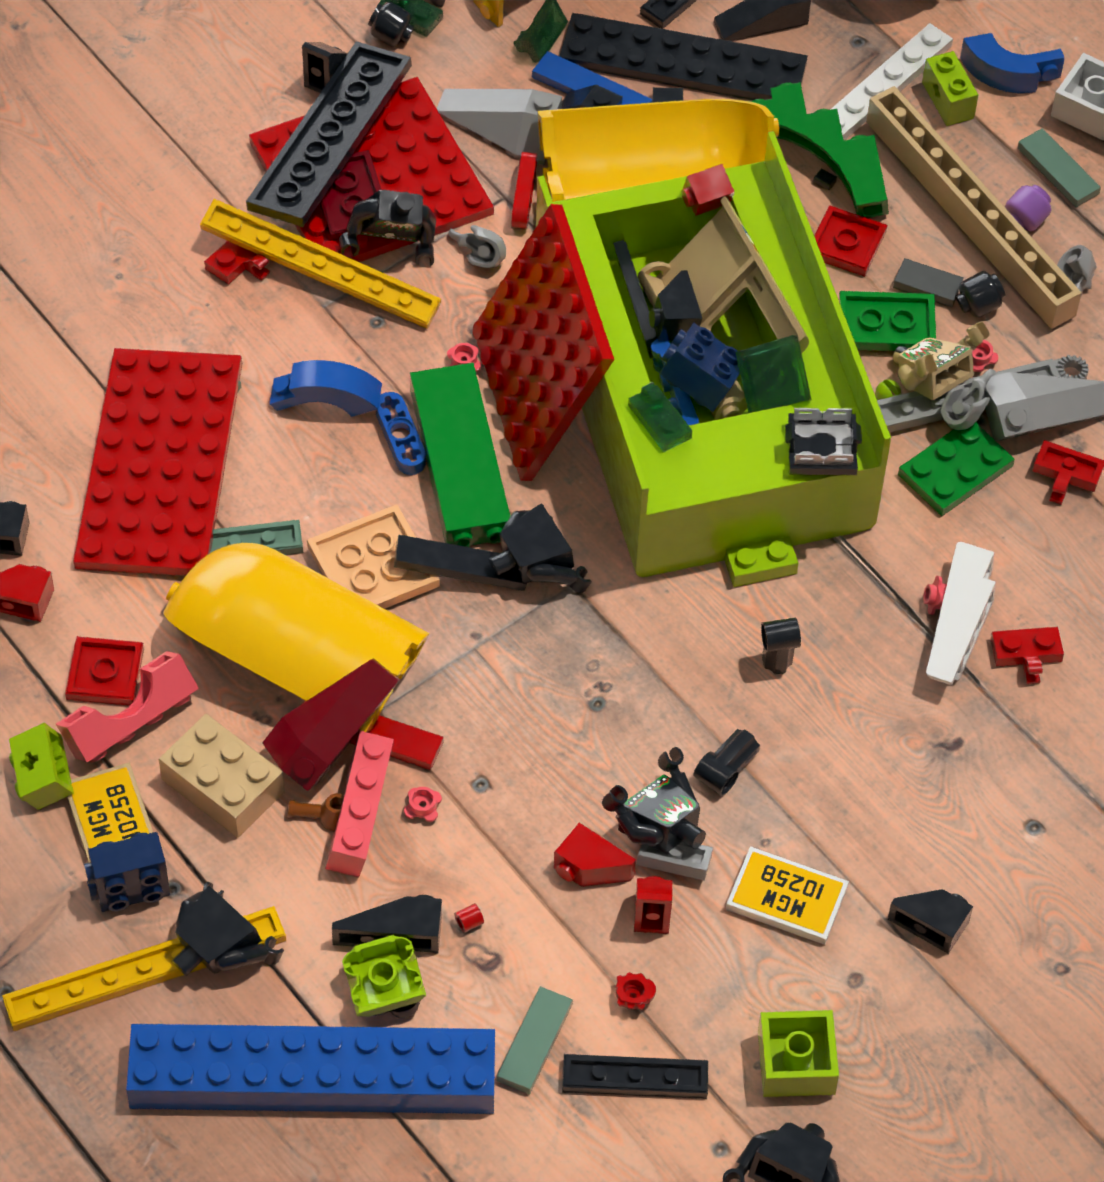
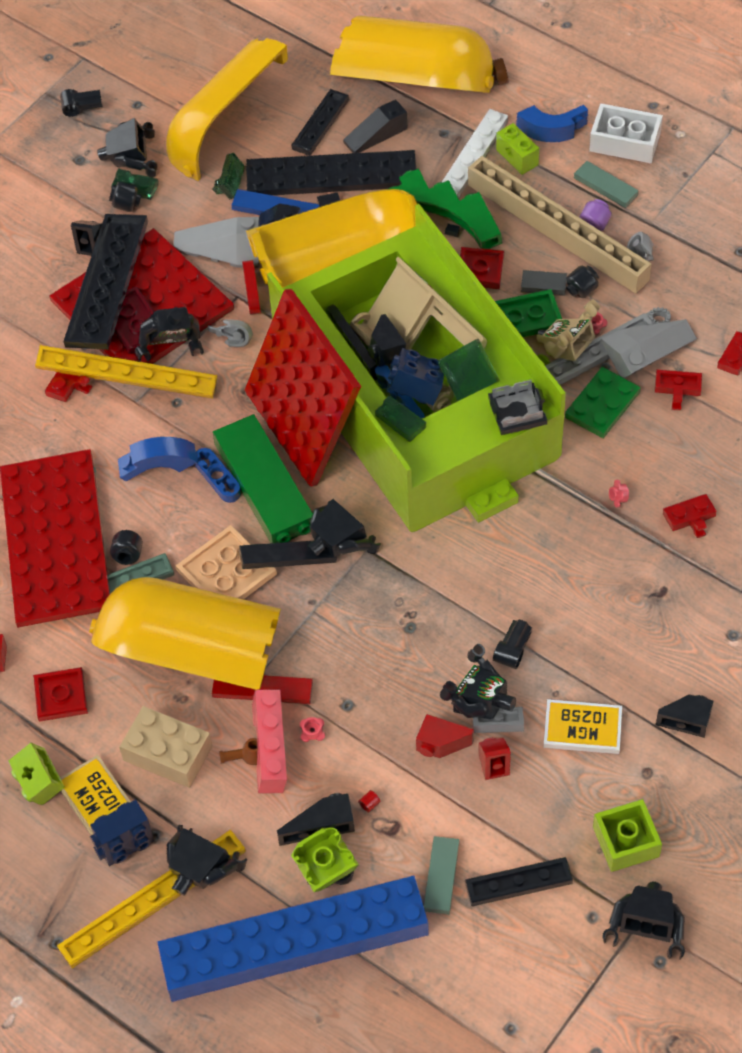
camera: 10 degrees left, 0 degrees up
(163, 685) = (105, 694): coral arch -> none
(249, 498) = (126, 547): none -> black head
(320, 729) = (226, 697): dark red wedge -> none
(464, 351) = (244, 407): coral plate -> none
(634, 991) = (501, 818): red animal -> none
(706, 189) = (384, 254): red brick -> none
(779, 643) = (524, 553): black piece -> none
(962, 613) = (640, 499): white wedge -> none
(964, 408) = (598, 360): light grey piece -> none

